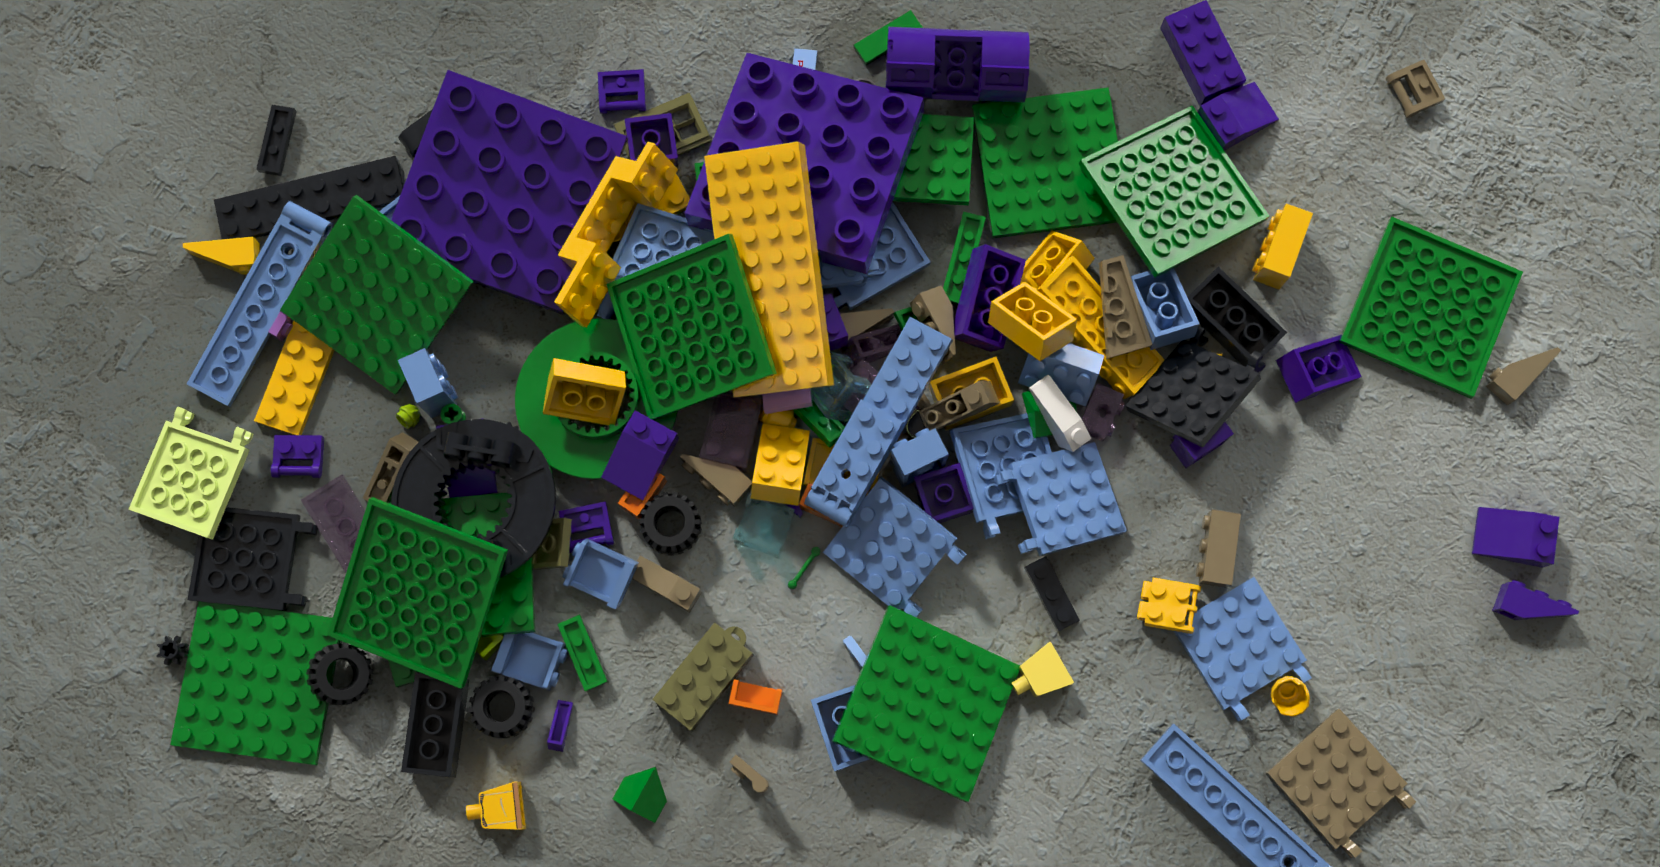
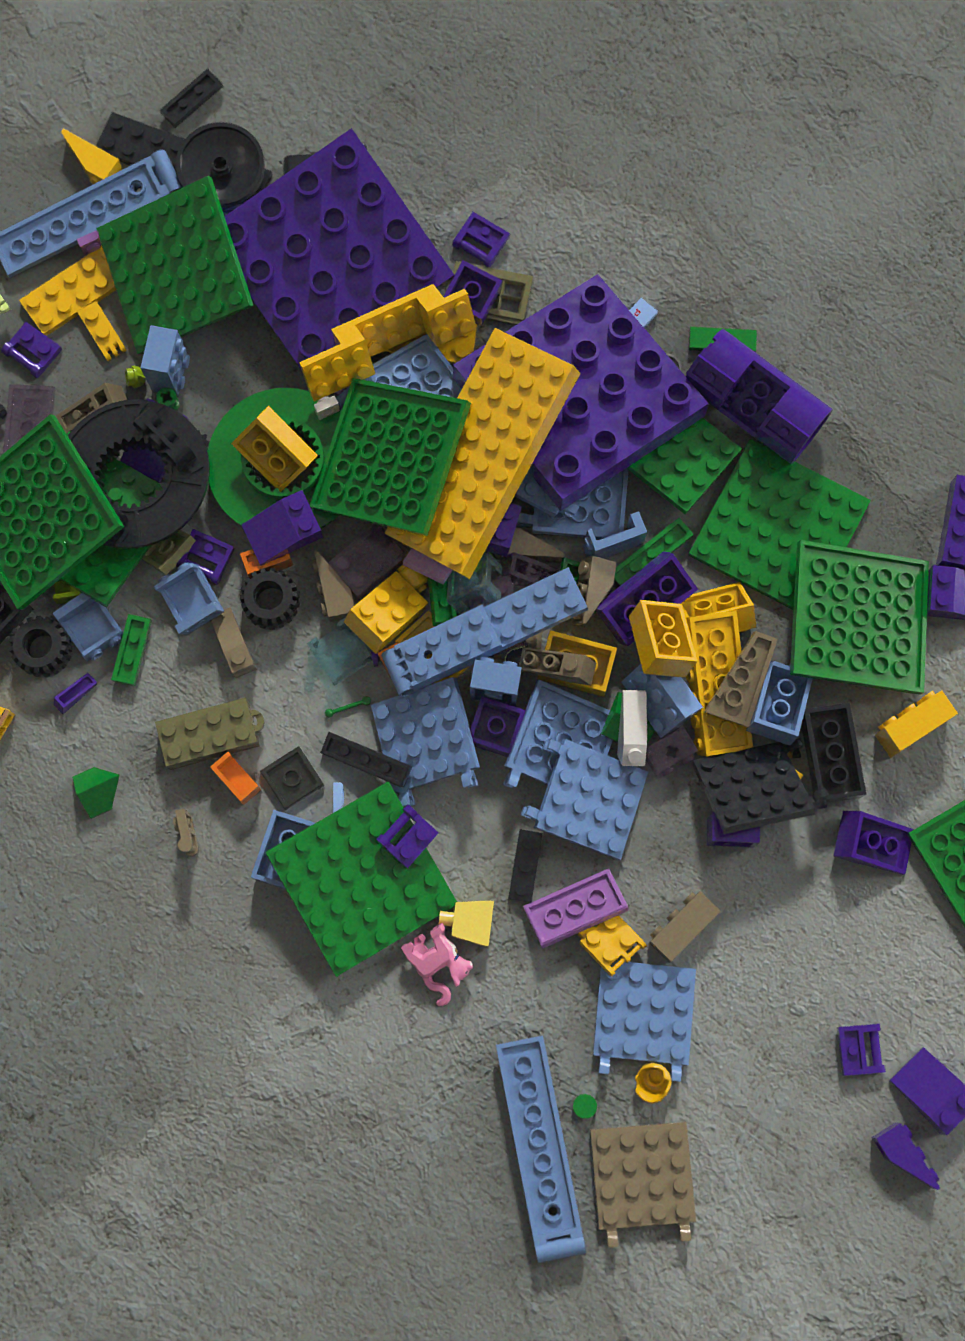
camera: 35 degrees right, 0 degrees up
(347, 396) = (101, 330): none -> yellow hinge
(348, 168) = (226, 155): none -> black dish
(600, 324) = (326, 407): none -> white plate
(802, 662) = (292, 778): none -> pearl dark grey tile
(854, 601) = (366, 759): none -> black tile
(939, 249) = (619, 542): none -> medium blue panel
(948, 640) = (414, 840): none -> dark purple plate
(1037, 725) = (432, 960): none -> bright pink animal
(1120, 598) = (575, 908): none -> medium lavender tile
(1248, 756) = (584, 1106): none -> green tile
(1427, 550) = (853, 1049): none -> dark purple plate

